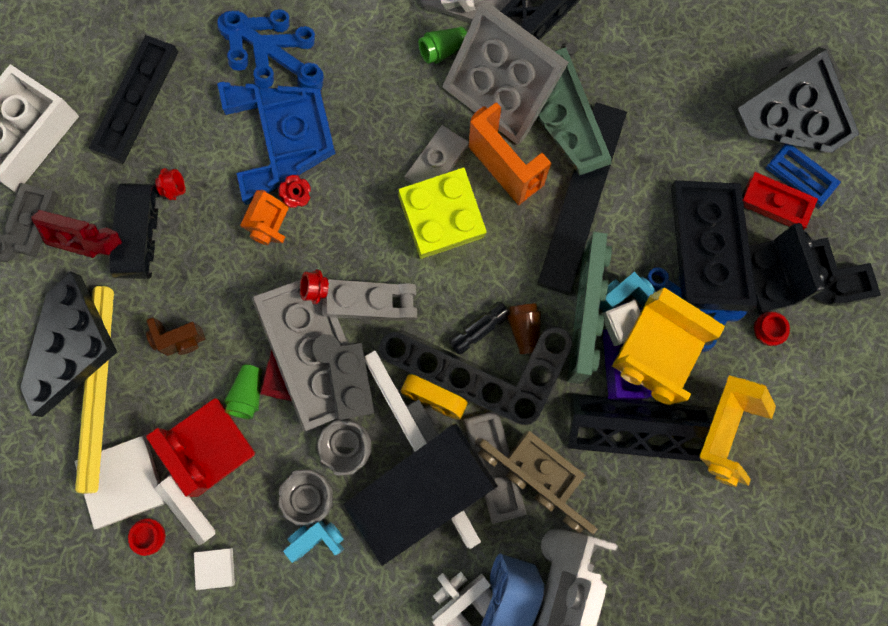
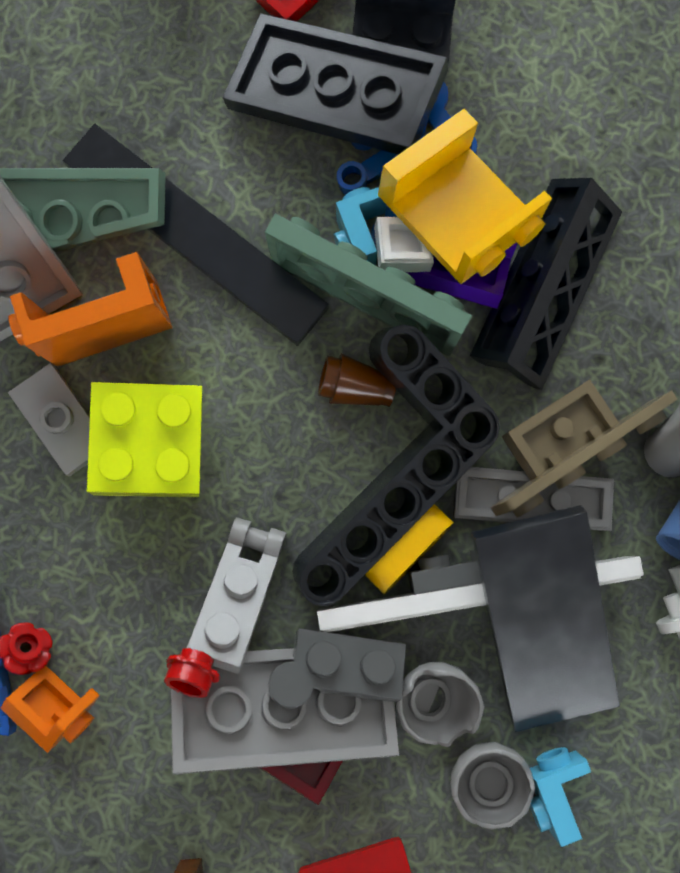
camera: 70 degrees left, 5 degrees up
(245, 393) = (306, 826): bright green cone -> none
(479, 328) = (331, 449): black axle -> none
(736, 398) = (560, 127): yellow panel -> none
(771, 328) = (474, 57): red plate -> none

